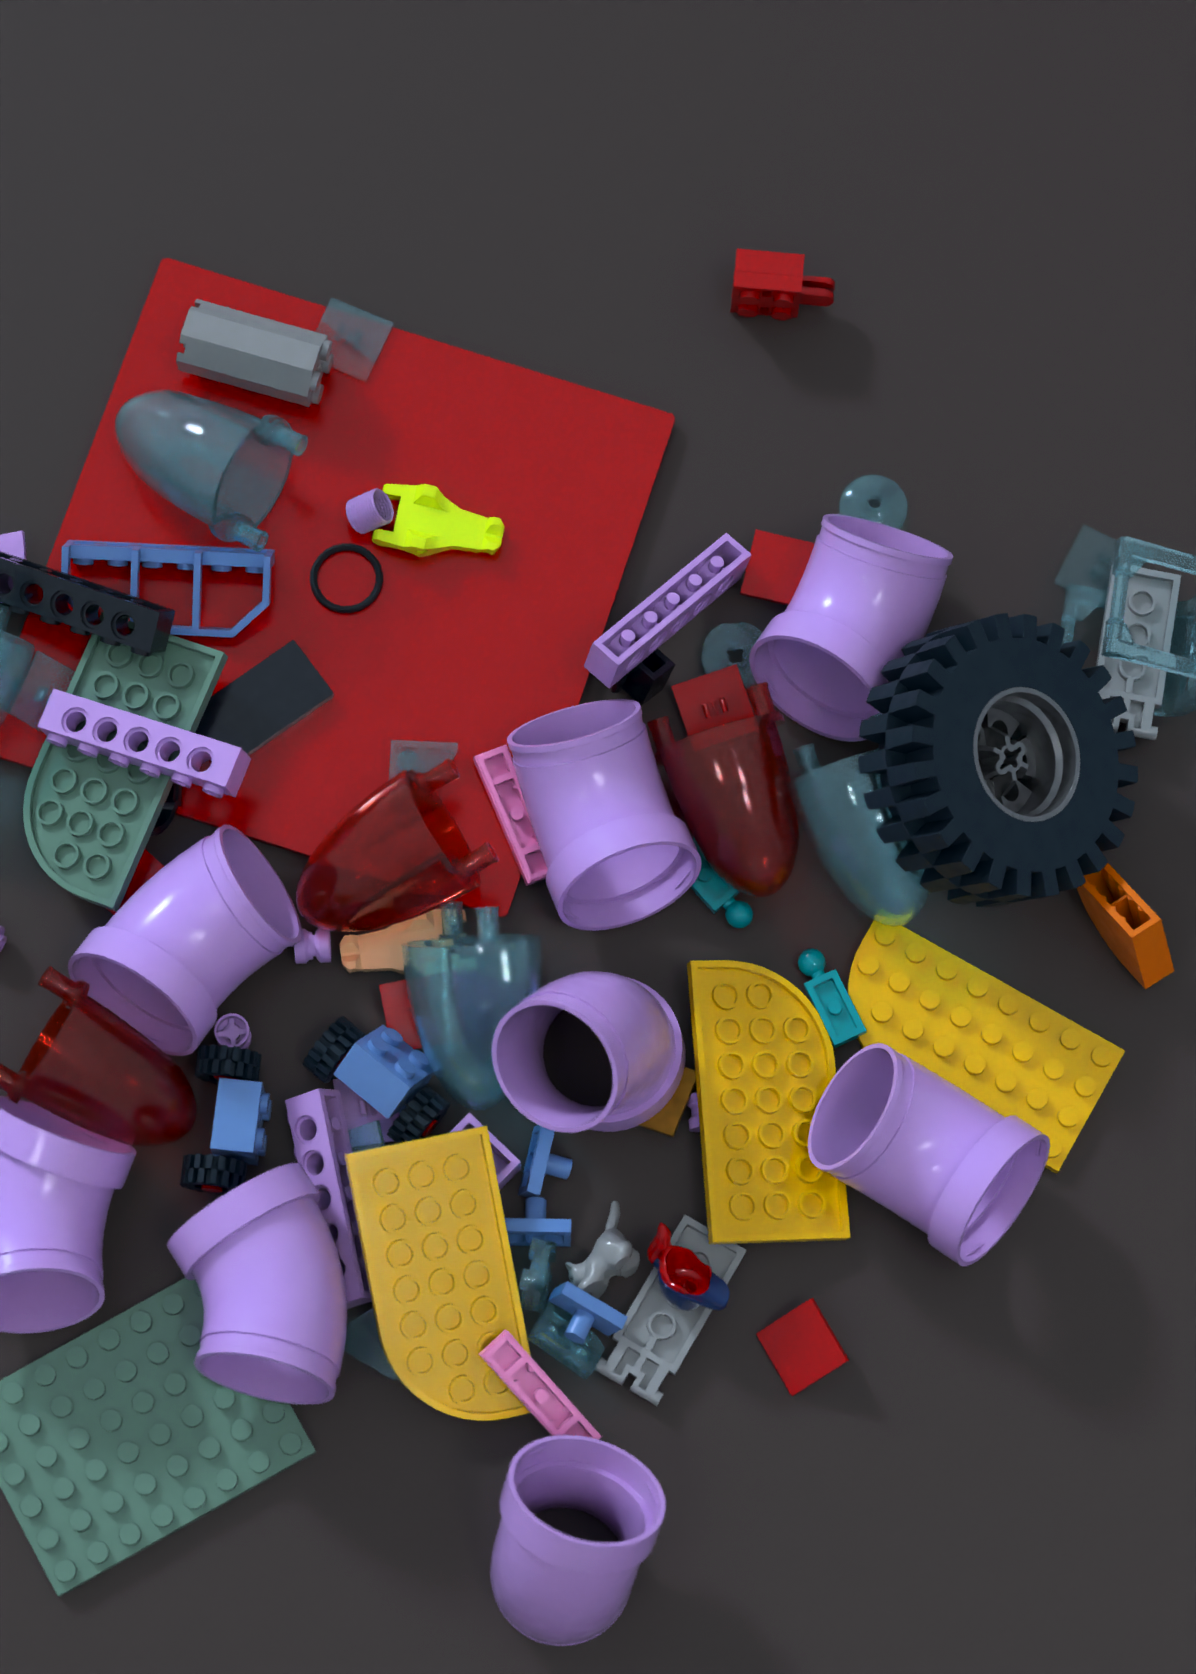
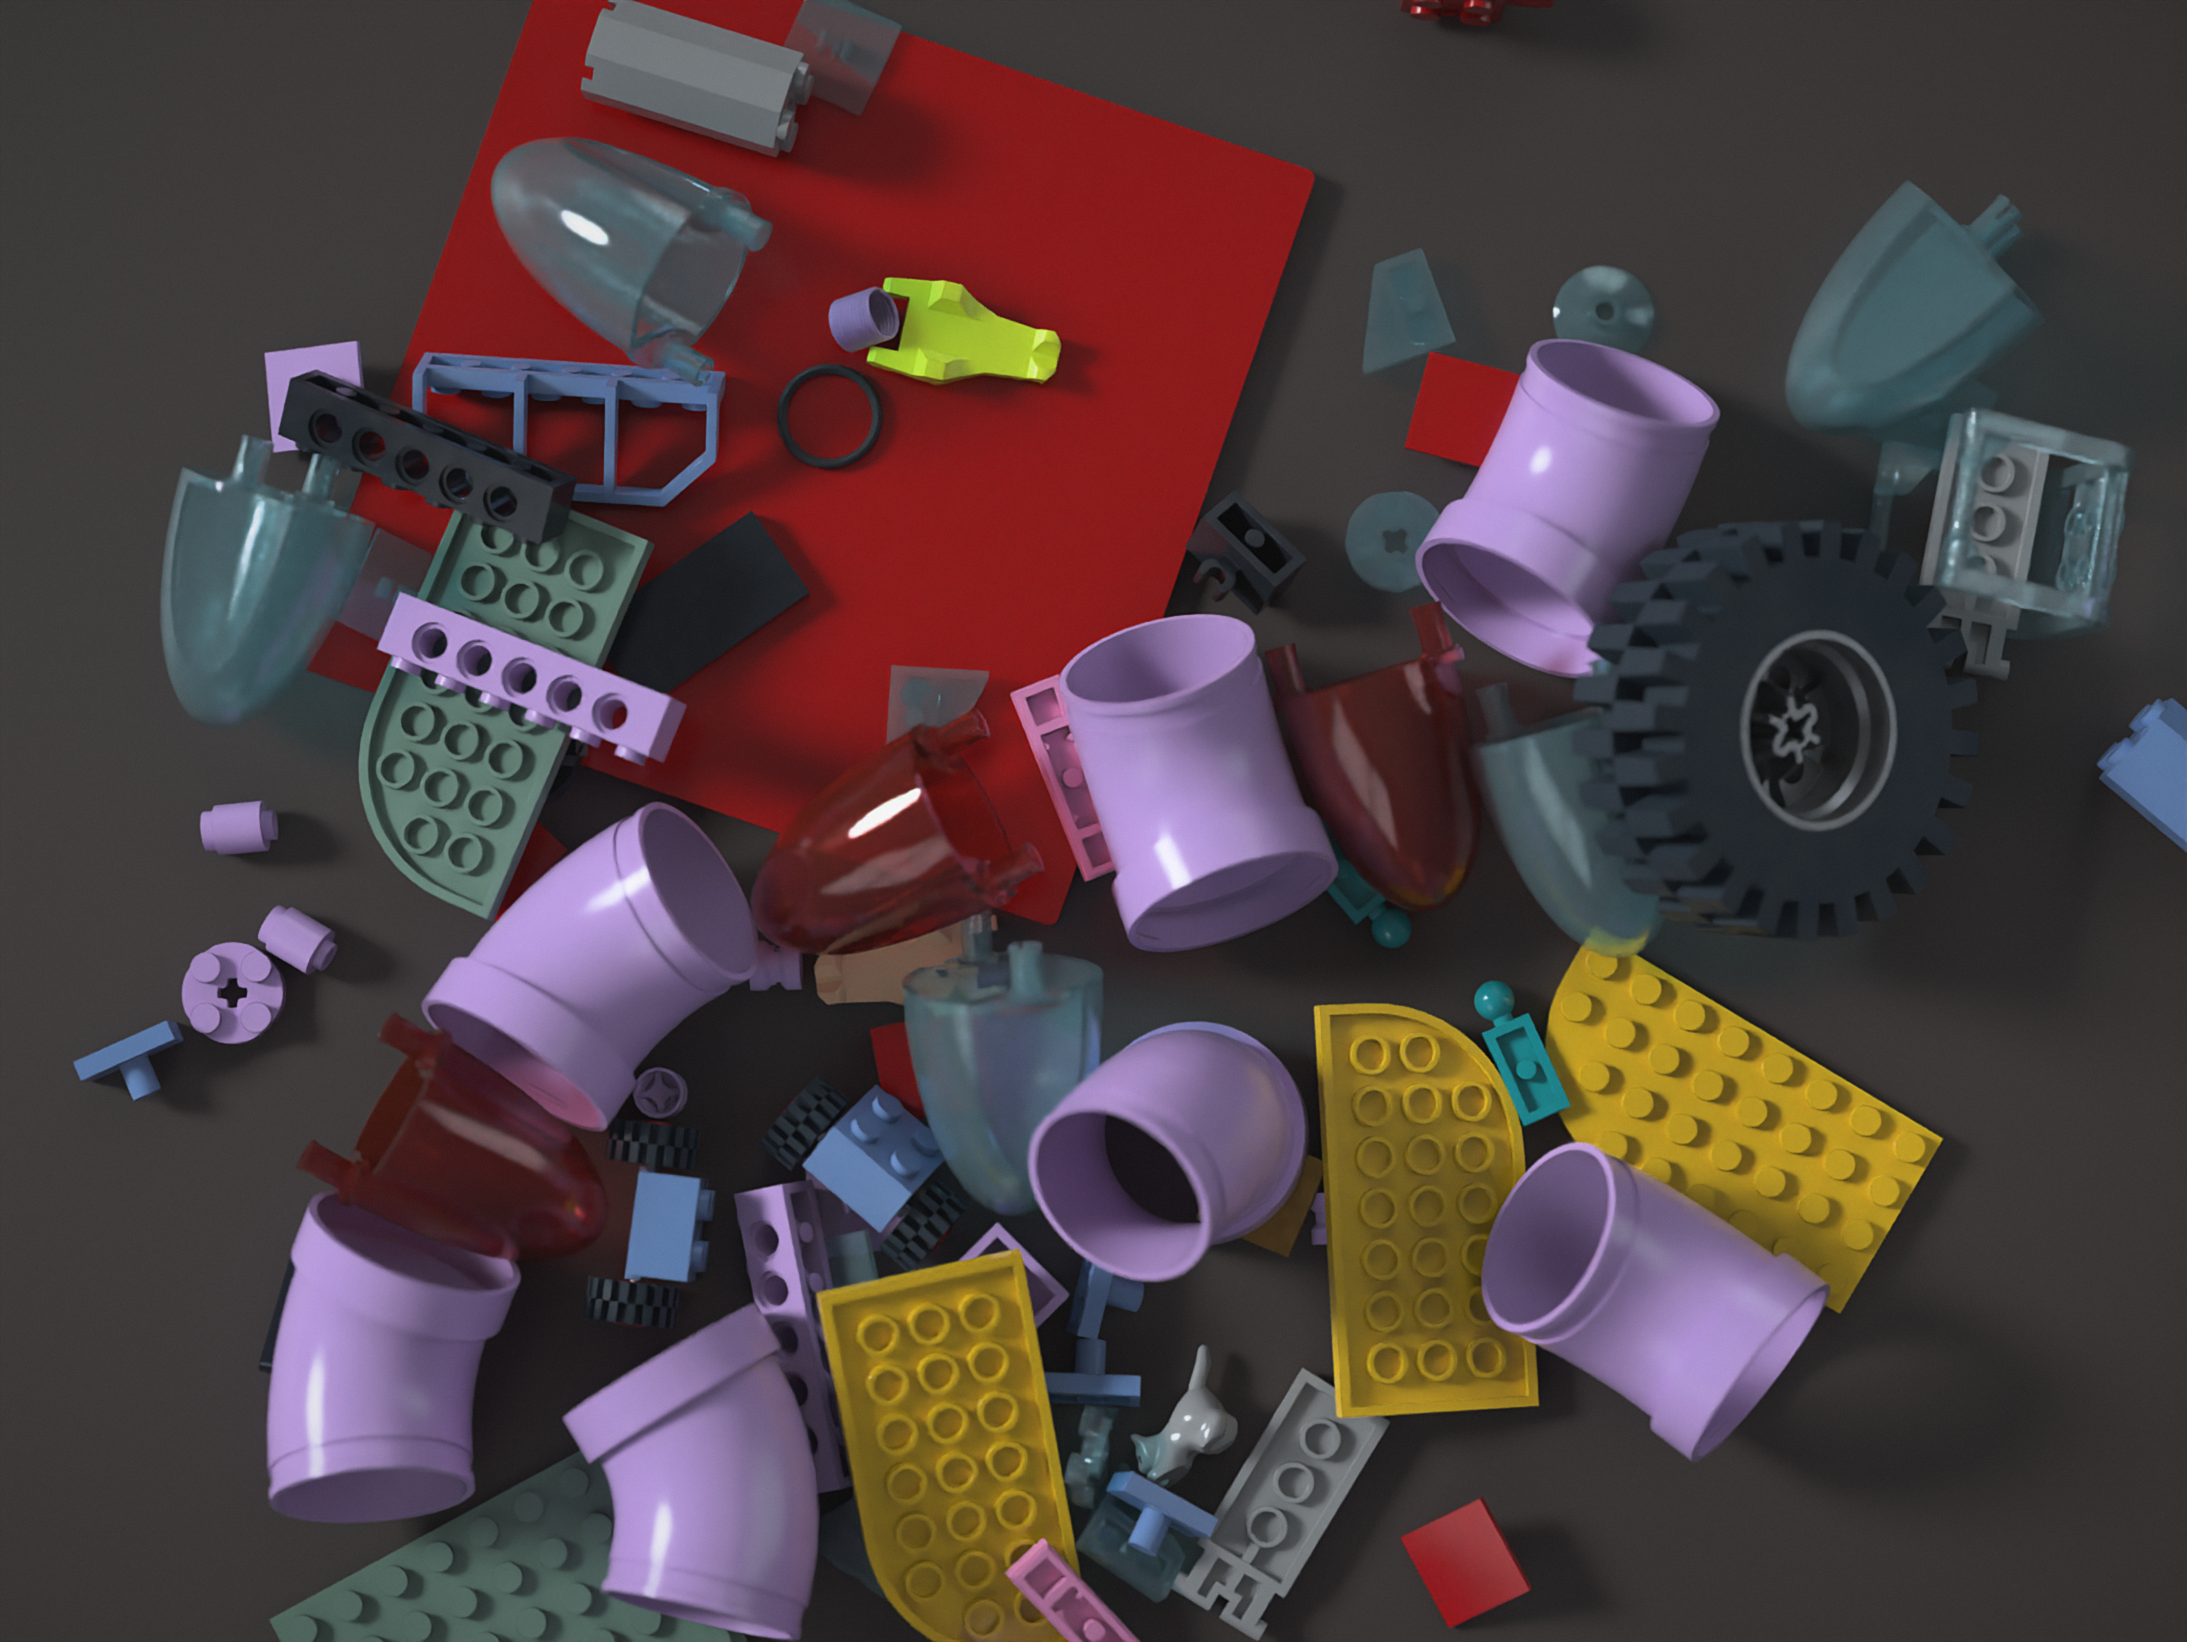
camera: 10 degrees right, 10 degrees up
(667, 610) = (1297, 482): lavender brick -> none
(684, 1277) = (1302, 1467): red hair -> none
(712, 700) = (1362, 619): red piece -> none
(738, 505) = (1404, 314): none -> clear light blue wing
(1080, 495) = (1907, 316): none -> clear light blue windscreen
(1127, 925) = (1955, 963): orange brick -> none

